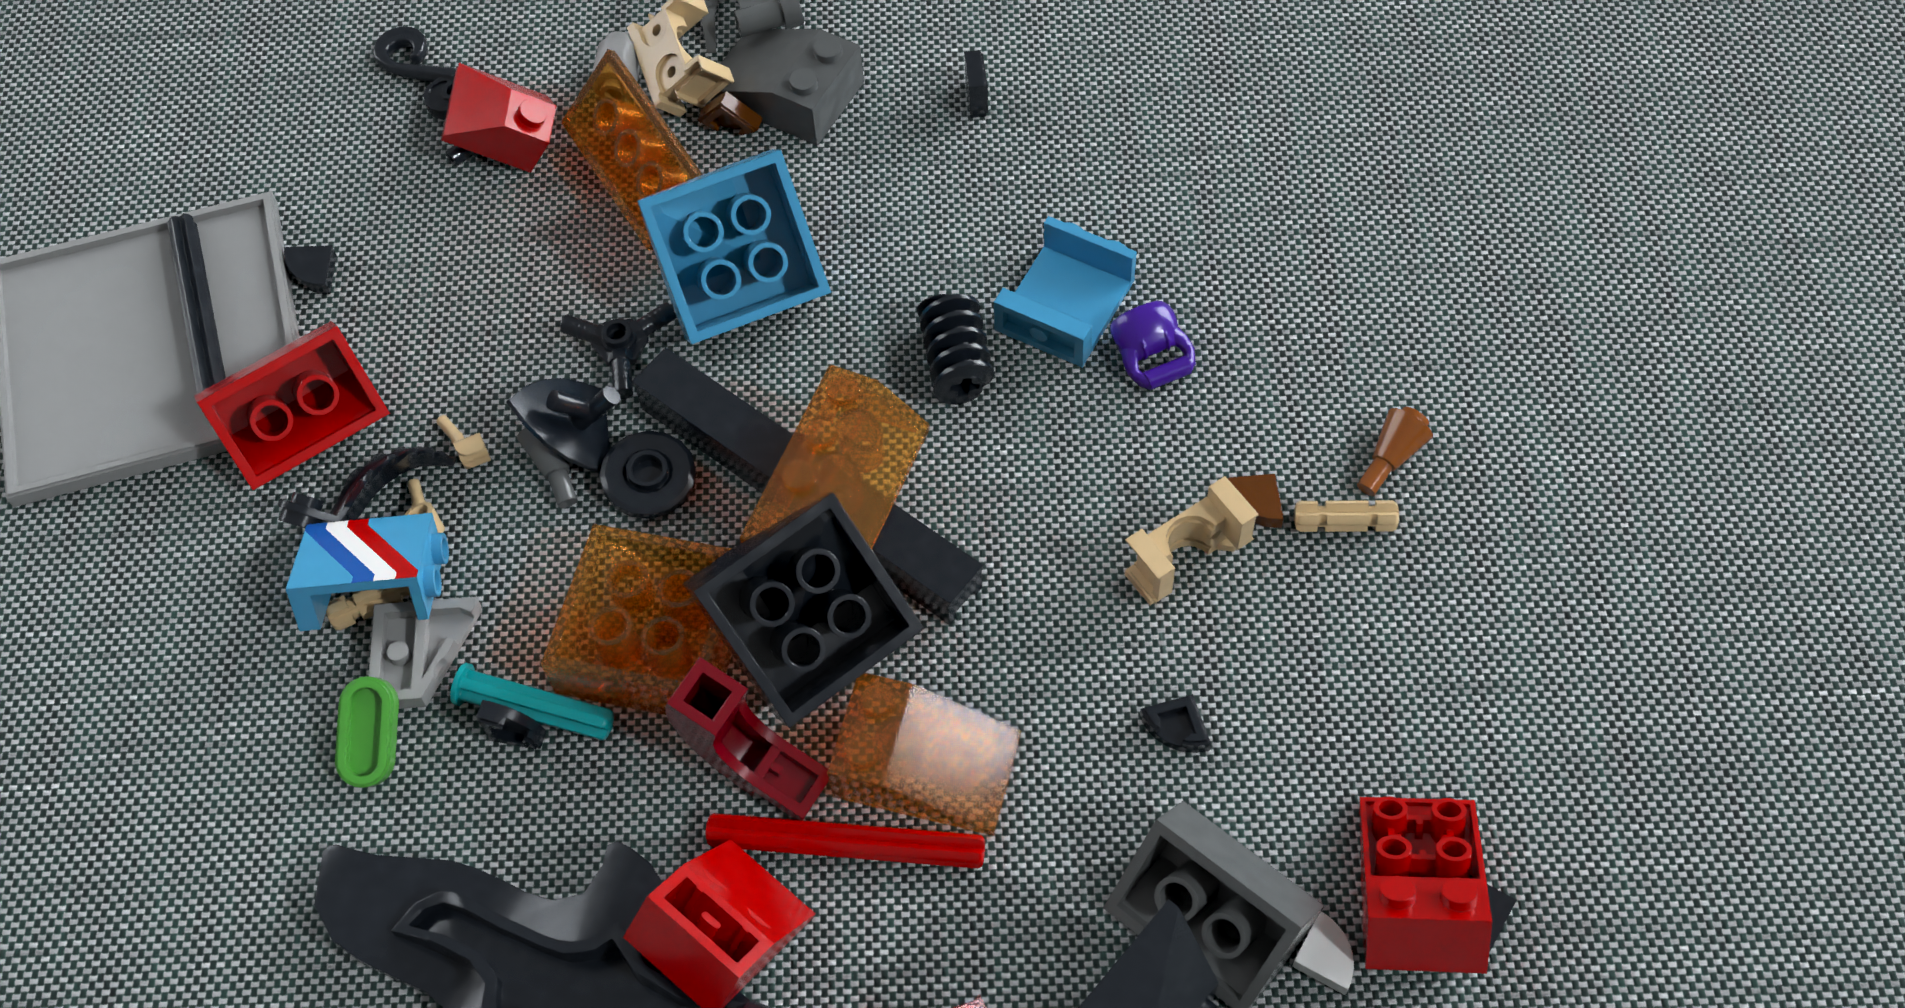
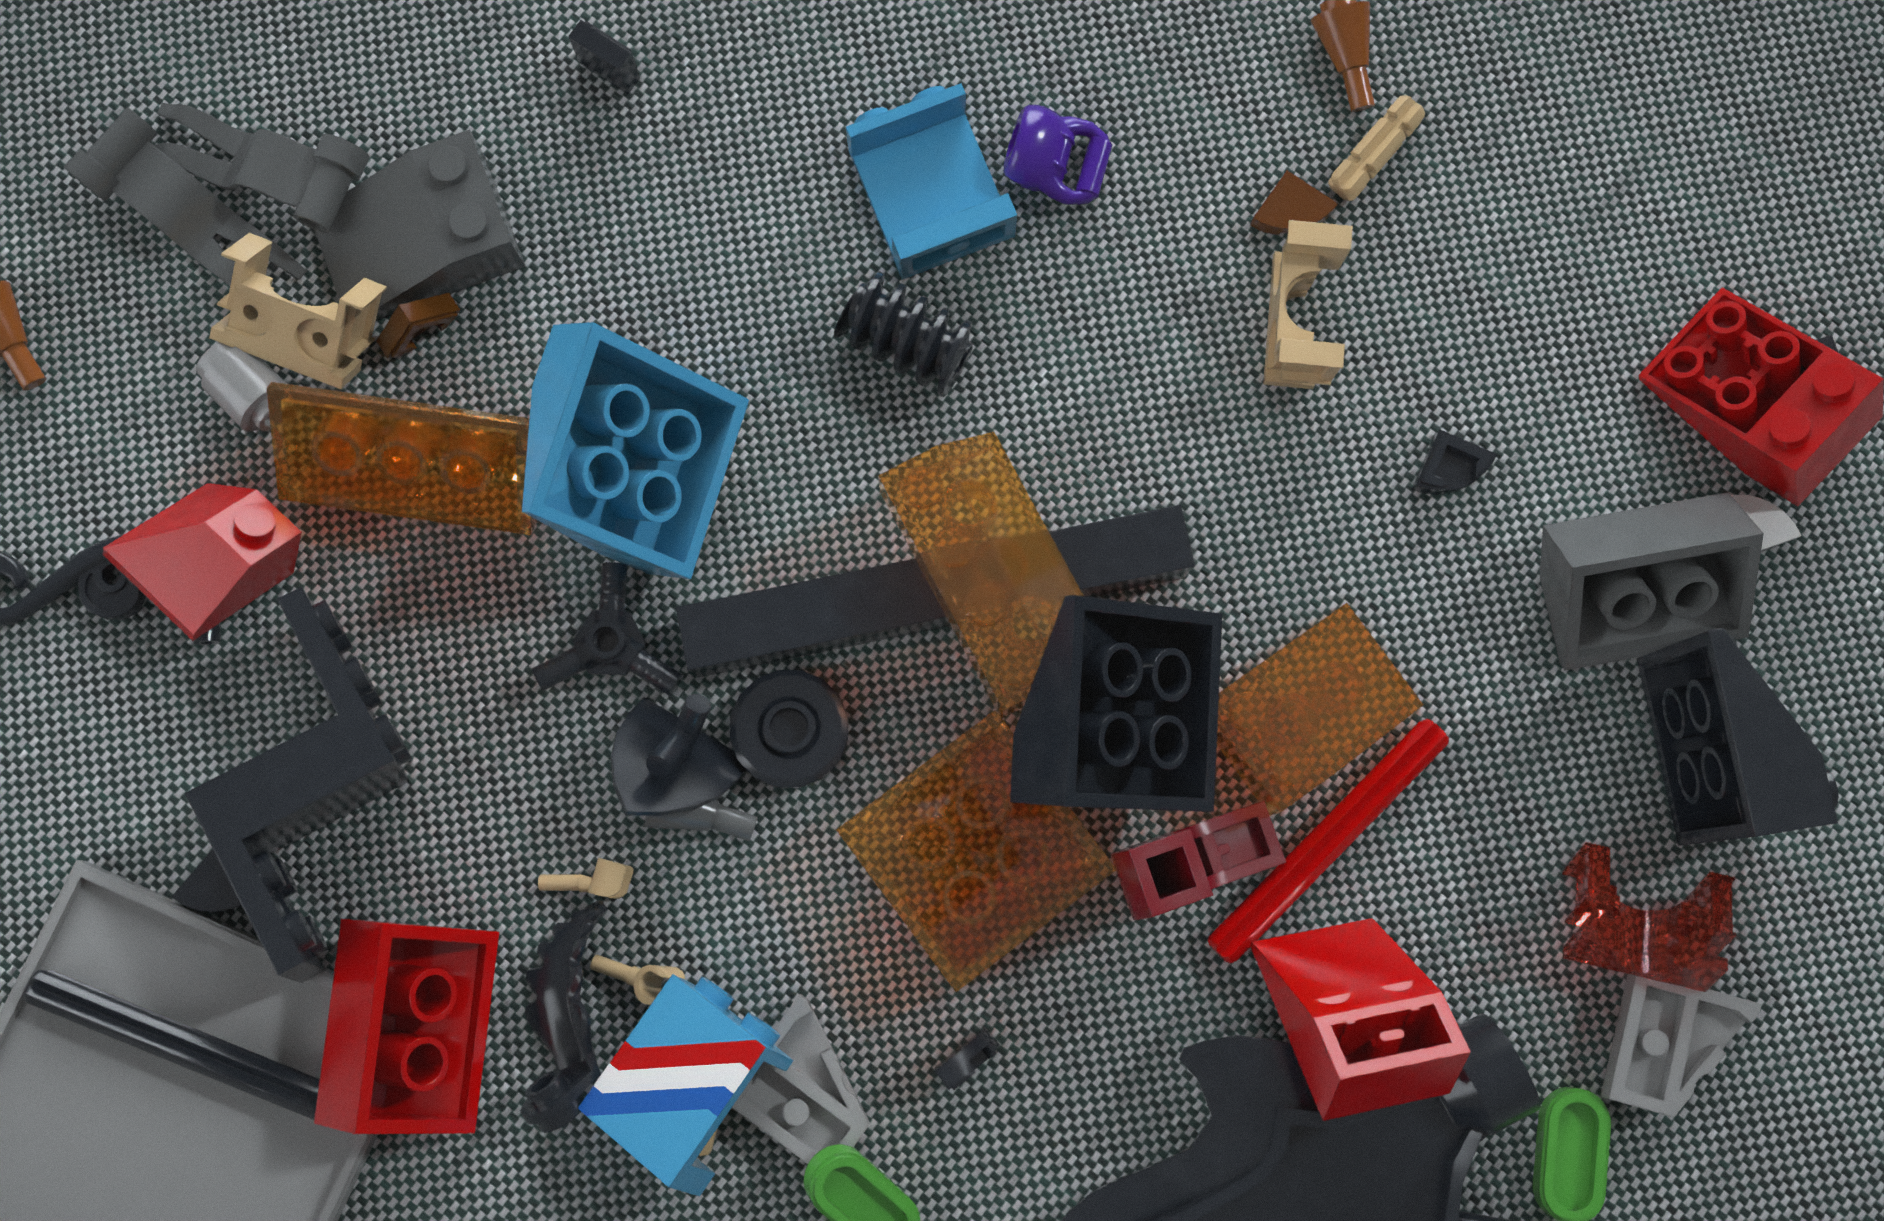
camera: 55 degrees left, 20 degrees up
(391, 246) = (300, 790): none -> black bracket
(536, 703) = (956, 1021): teal axle -> none

